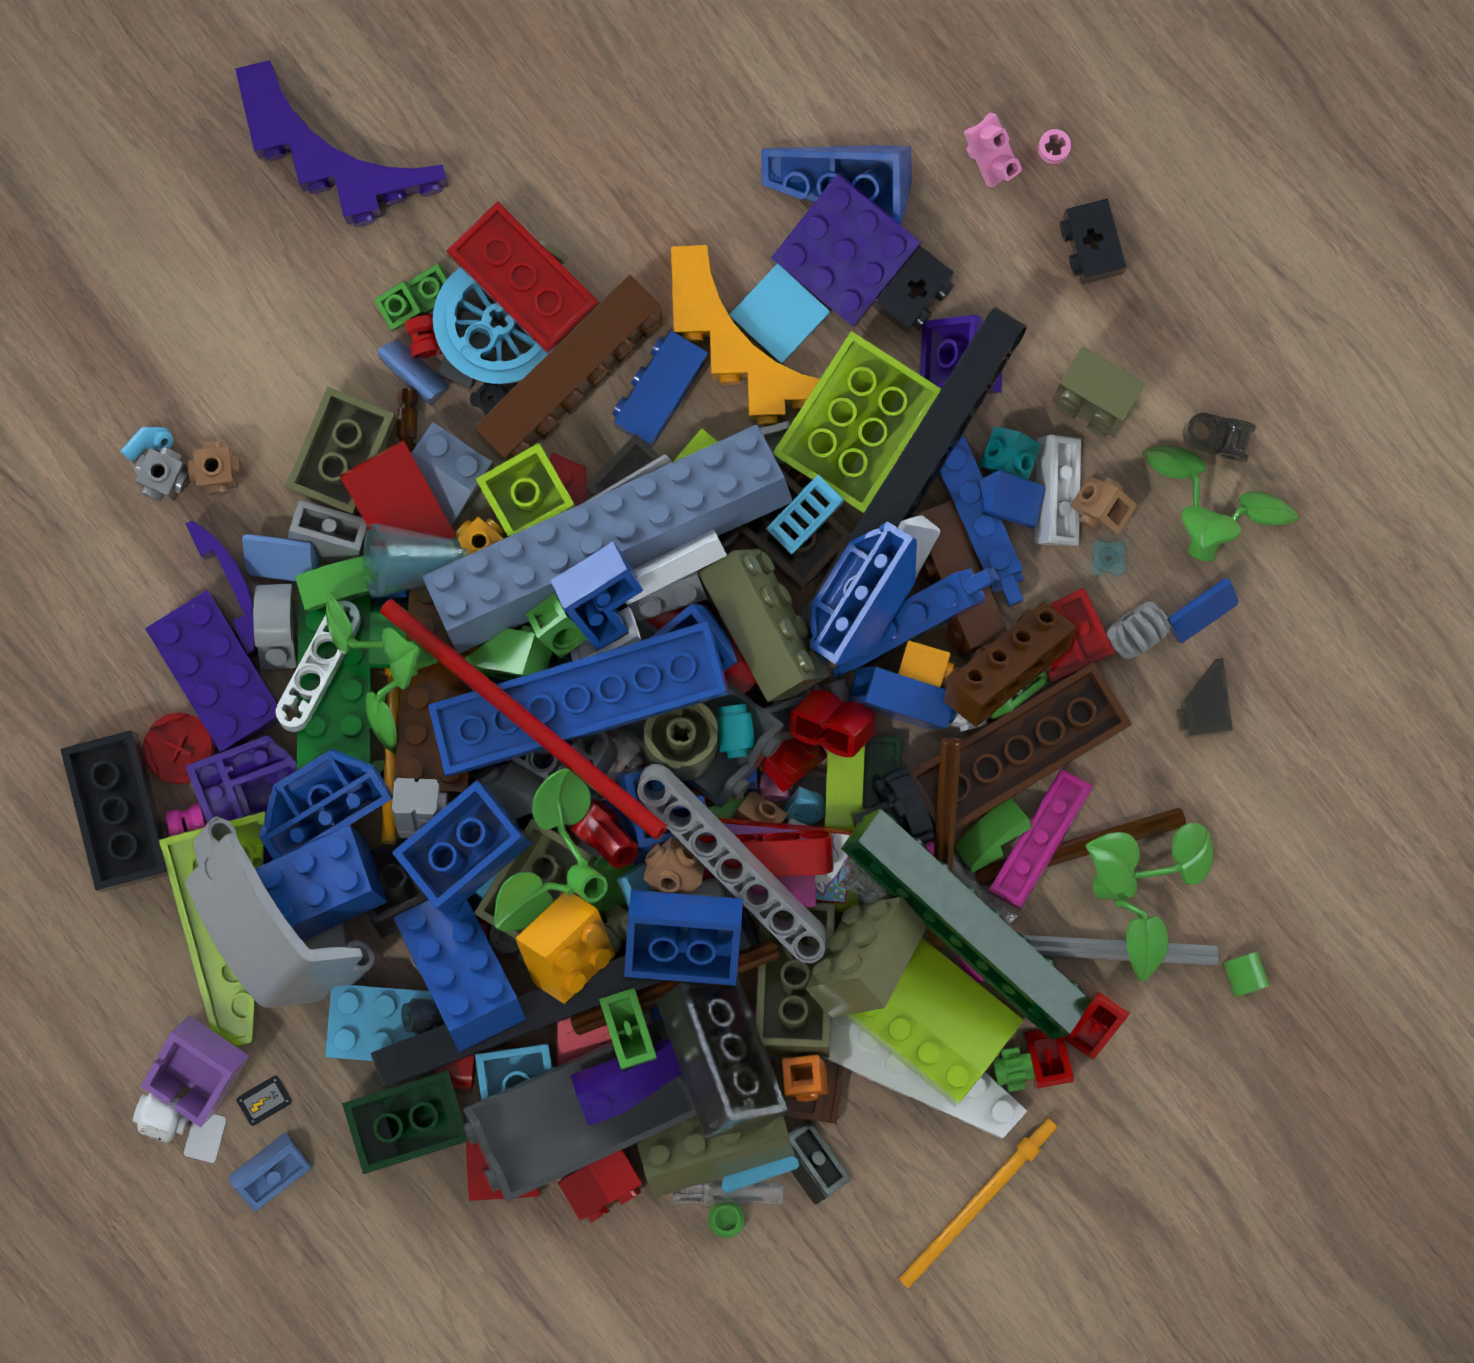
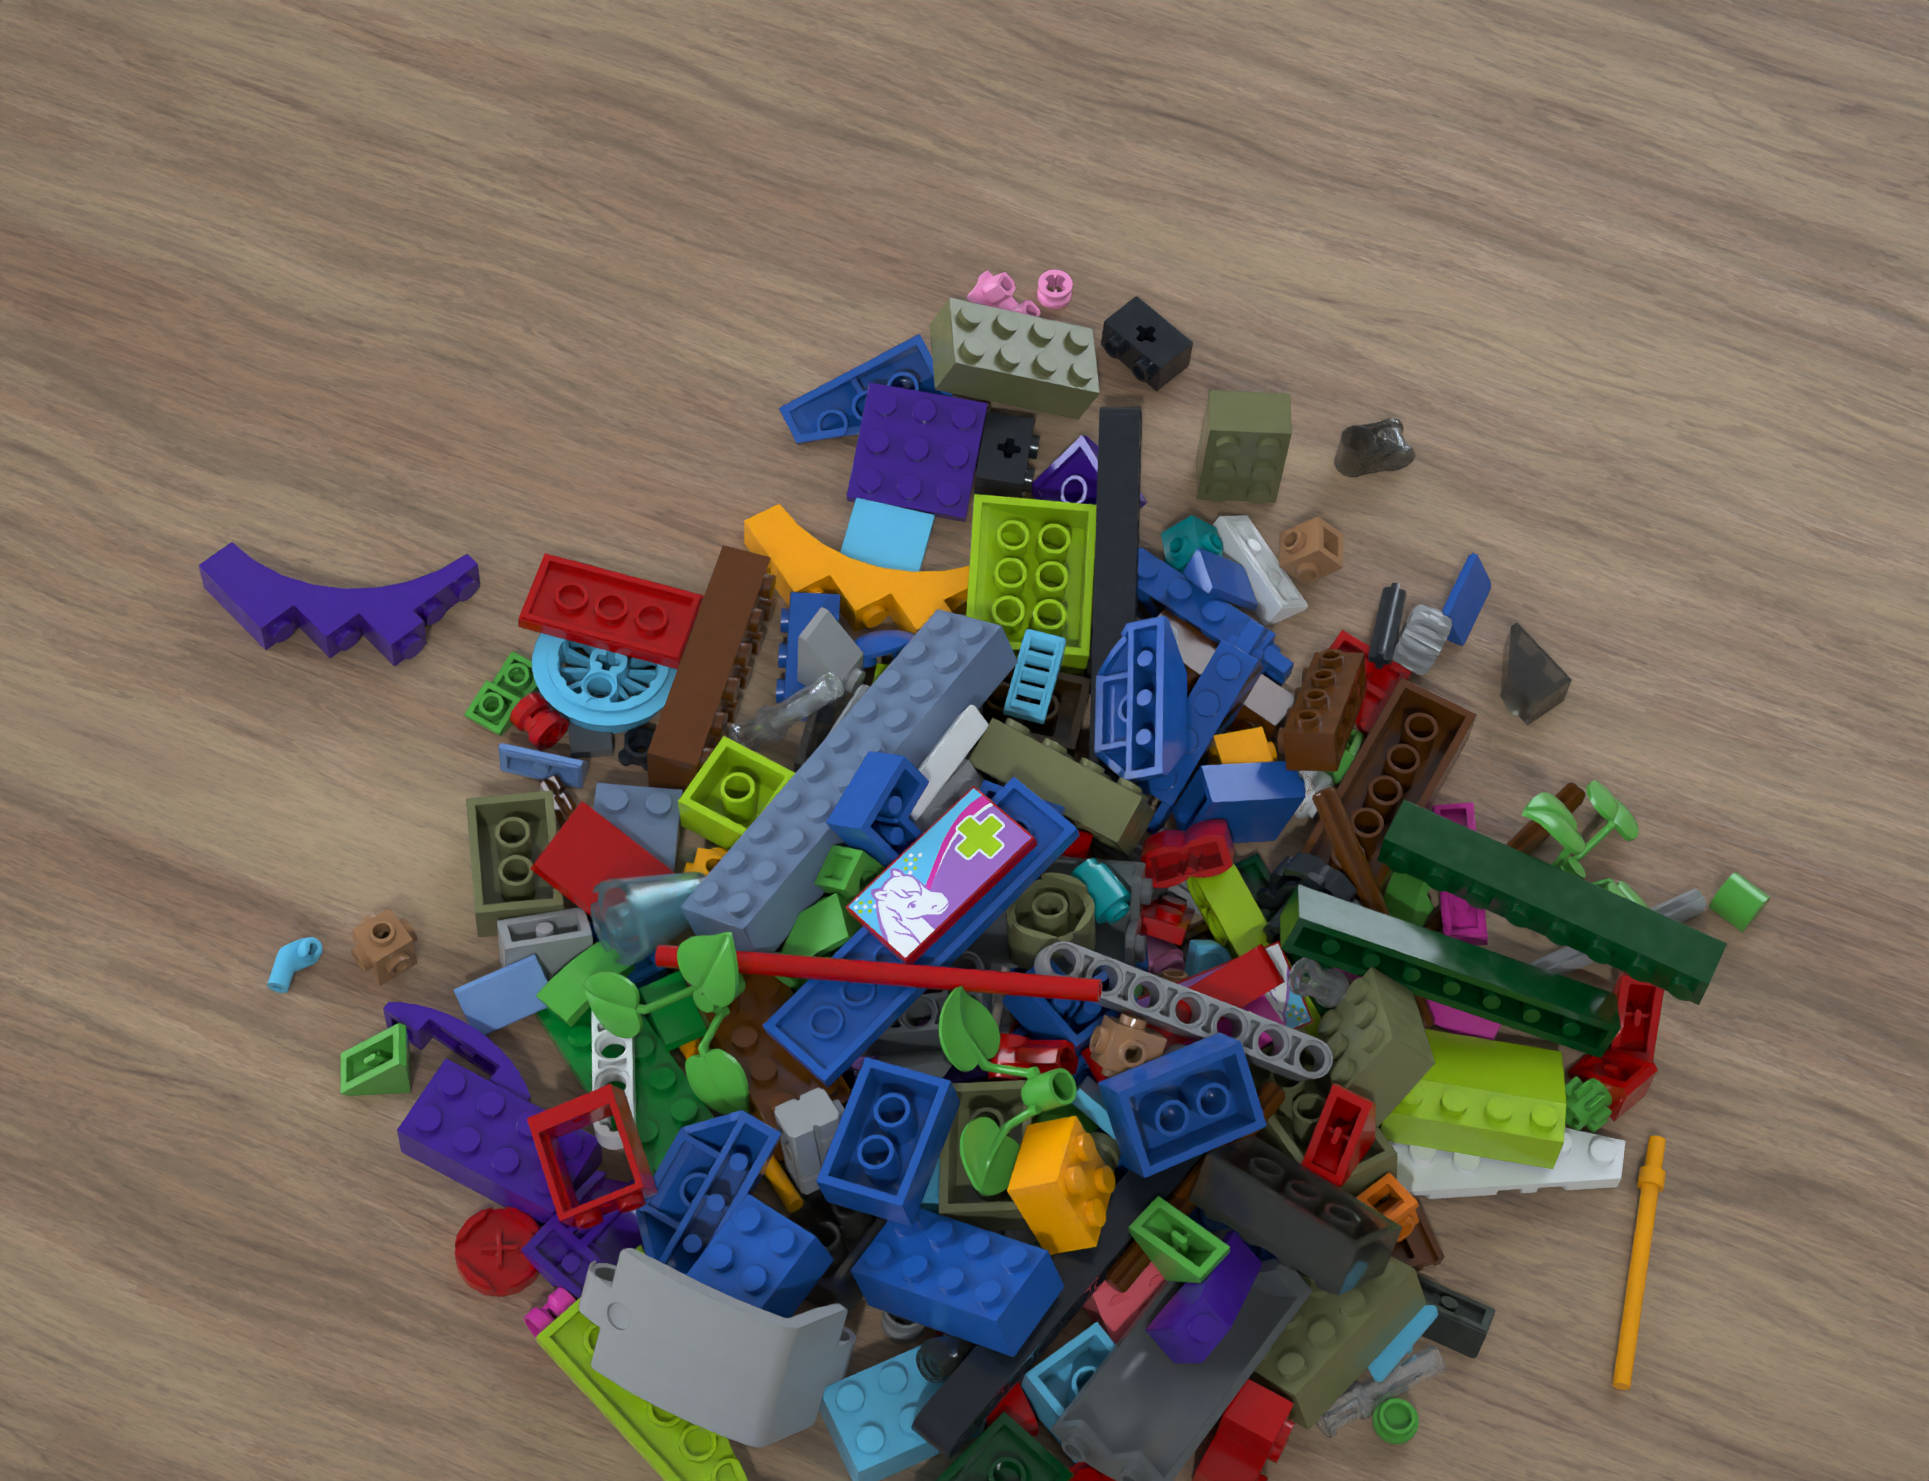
camera: 40 degrees left, 25 degrees down
(115, 810) = (468, 1342): black brick -> none
(164, 560) = (378, 1064): none -> bright green slope
(170, 483) = (328, 979): light grey brick -> none
(230, 734) = (570, 1117): none -> red window
(274, 626) = (540, 1063): light grey brick -> none
(594, 437) = (773, 721): none -> clear pin
(609, 670) = (941, 876): none -> tile
(657, 417) = (829, 648): none -> light grey slope
(712, 412) = (882, 643): none -> blue dish
(789, 1018) = (1341, 1135): none -> red slope
(967, 211) = (1014, 358): none -> olive brick
(1075, 915) = (1551, 902): none -> dark green brick
(1115, 550) = (1347, 592): clear light blue plate -> none
(1121, 603) = (1387, 626): none -> black axle
(1207, 527) = (1424, 529): bright green plant -> none

